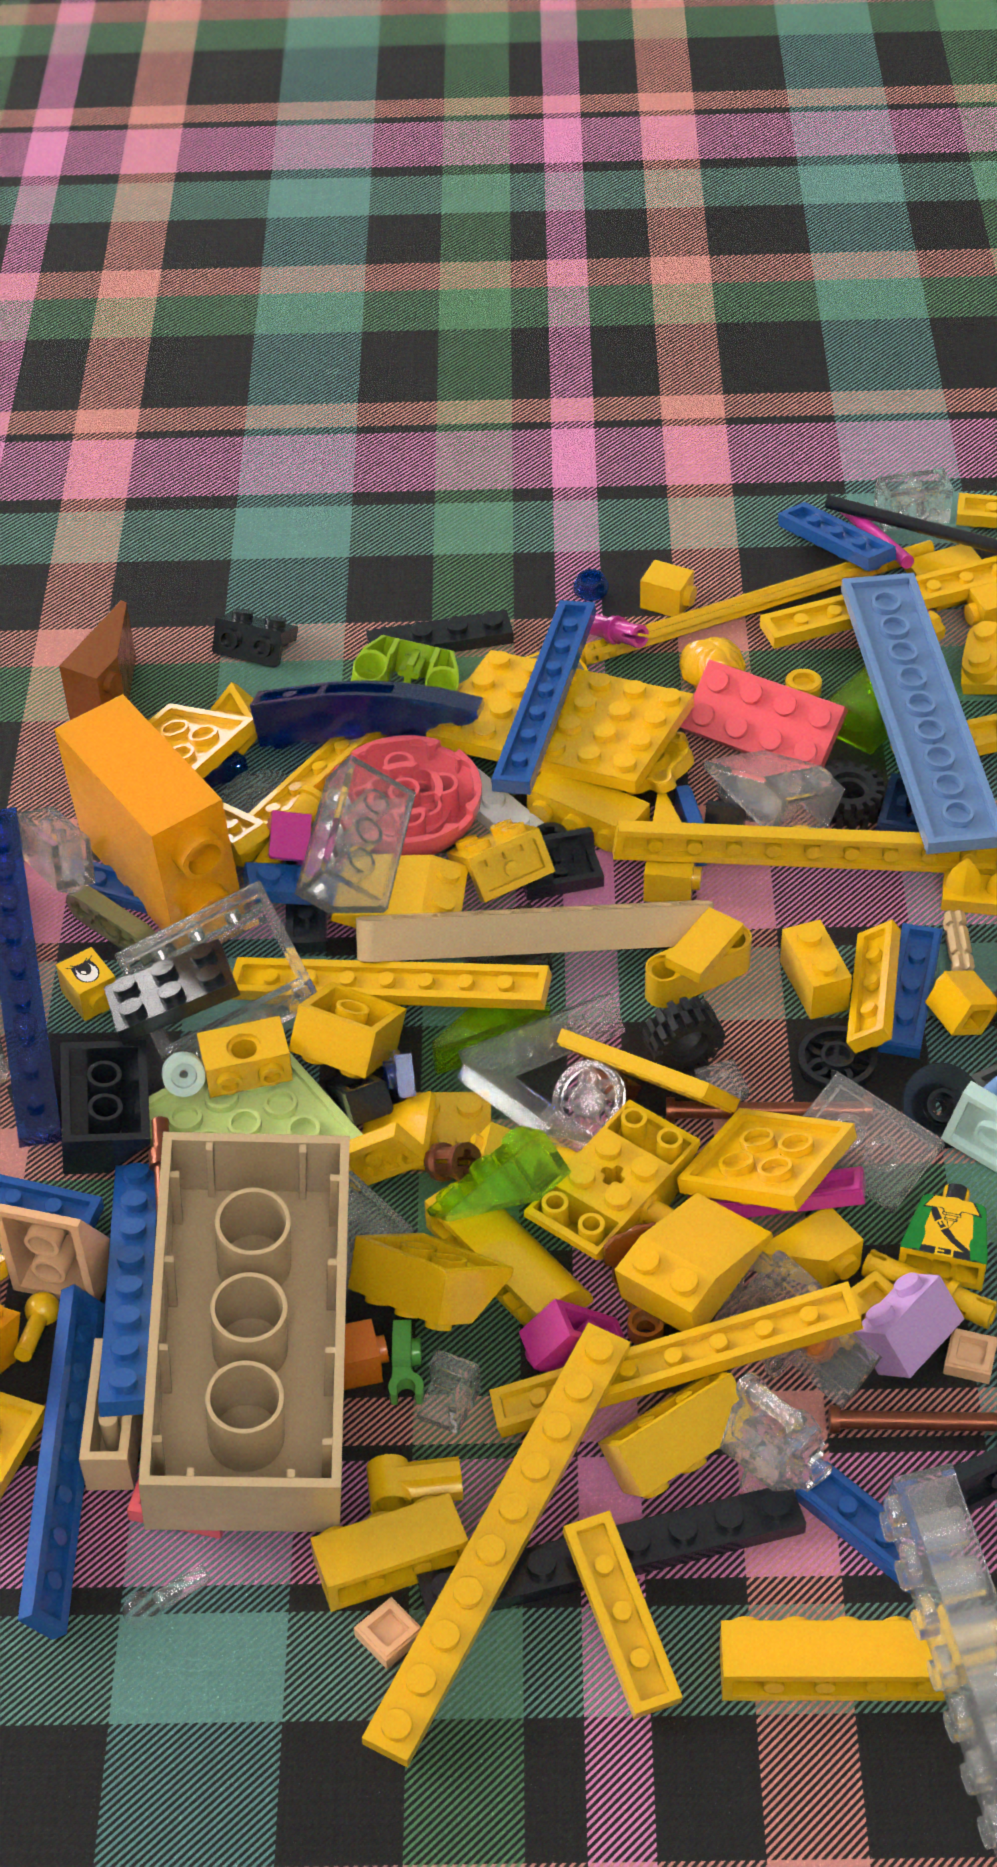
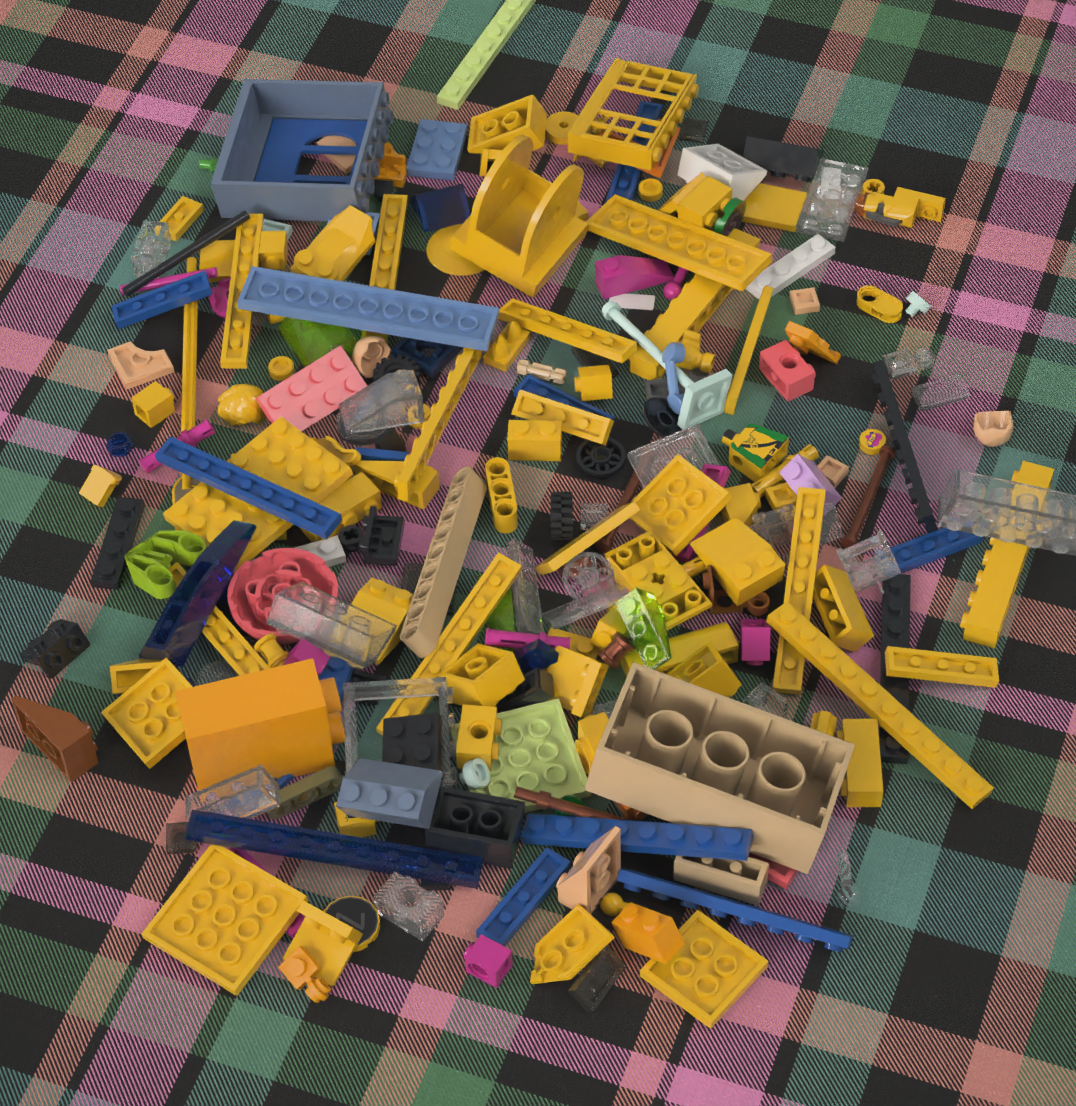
camera: 70 degrees left, 5 degrees up
(93, 979) = (390, 793): none -> sand blue slope
(387, 1632) = (906, 781): light nougat tile -> none
(436, 1074) = (516, 640): none -> dark pink pin
(504, 858) = (364, 557): yellow bracket -> none
(518, 585) = (100, 485): none -> yellow tile
(704, 945) = (502, 480): yellow tile -> none
(731, 561) = (139, 366): none -> light nougat tile
(864, 745) = (369, 352): none -> light nougat hair

